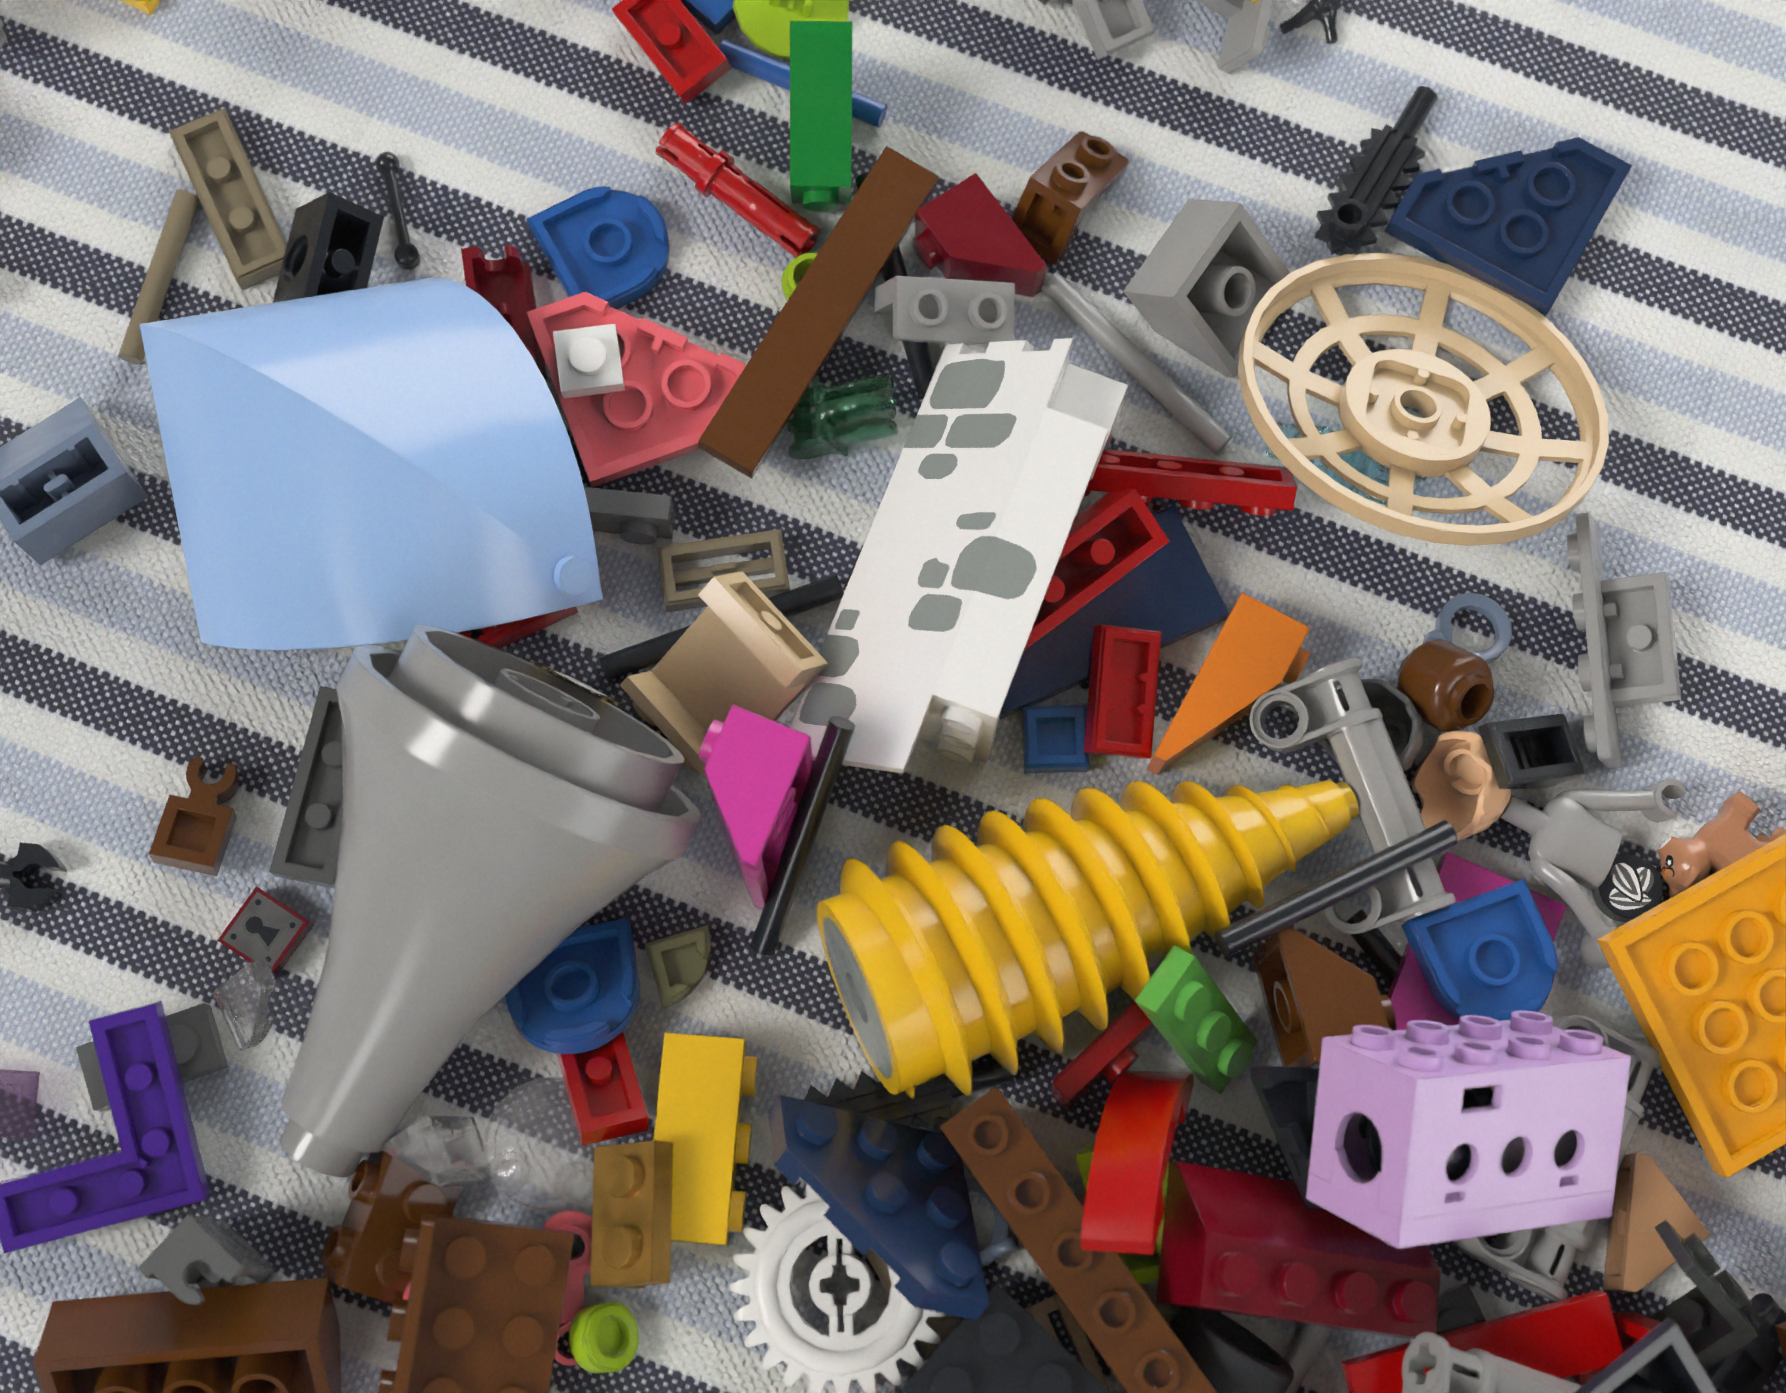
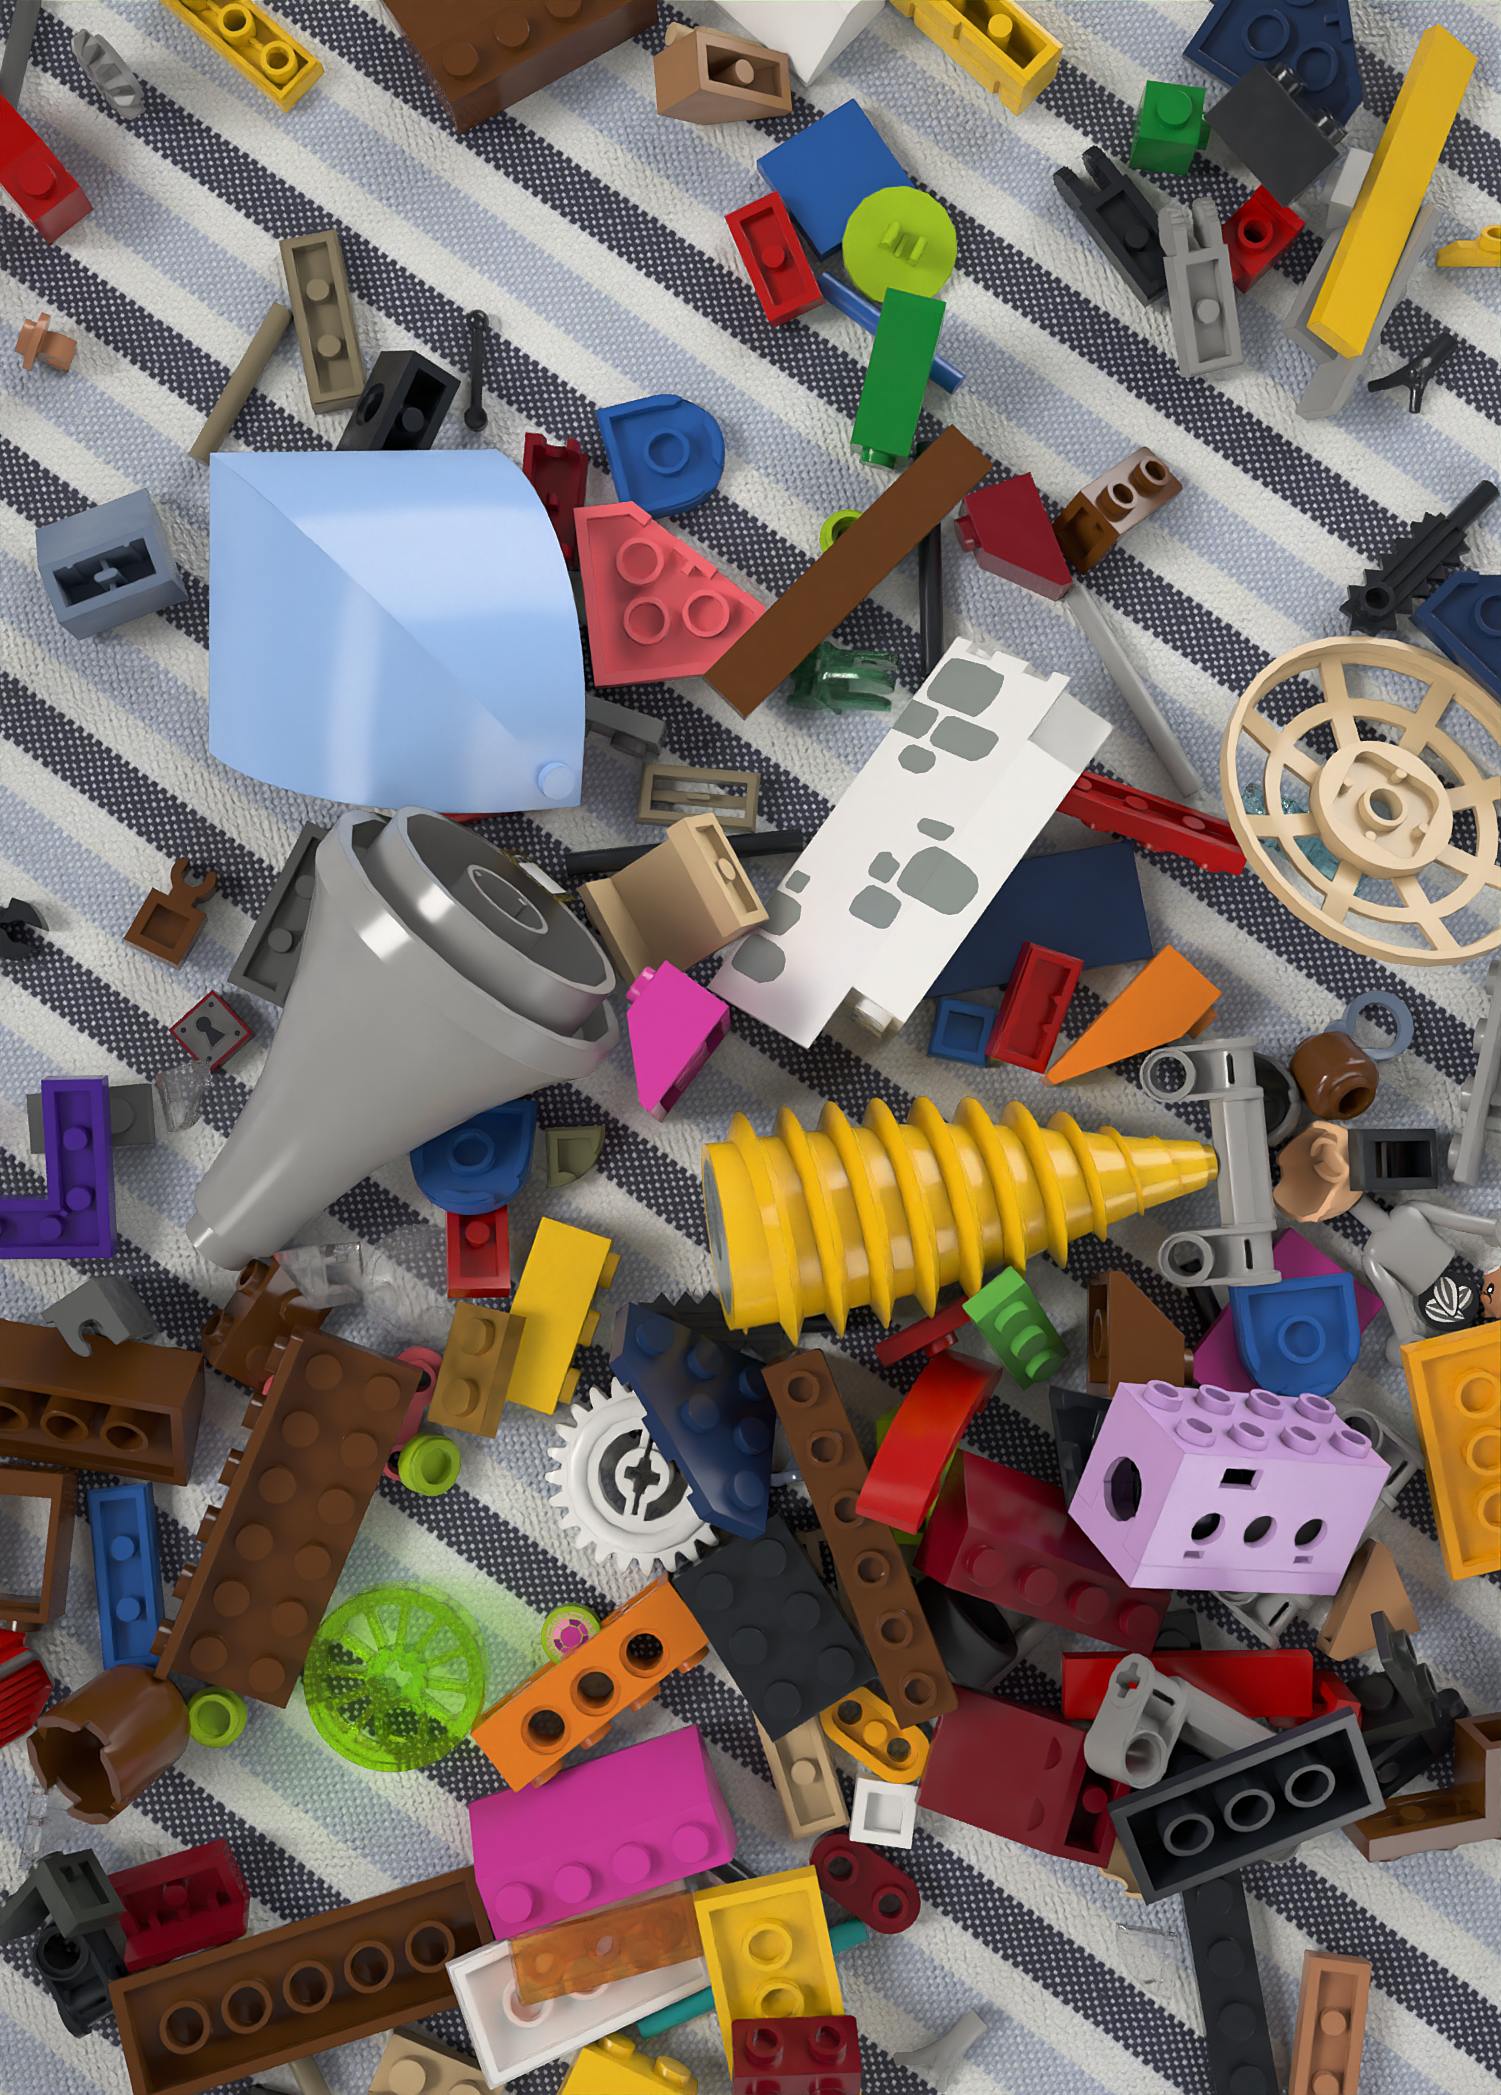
camera: 20 degrees right, 10 degrees up
(588, 361) = (620, 571): white plate -> none
(719, 177) = (788, 414): red pin -> none
(802, 834) = (707, 1071): black bar -> none
(947, 310) = (968, 606): light grey bracket -> none
(1099, 551) = (1054, 871): red brick -> none
(1206, 281) = (1223, 630): light grey slope -> none
(1335, 888) = (1173, 1246): black bar -> none

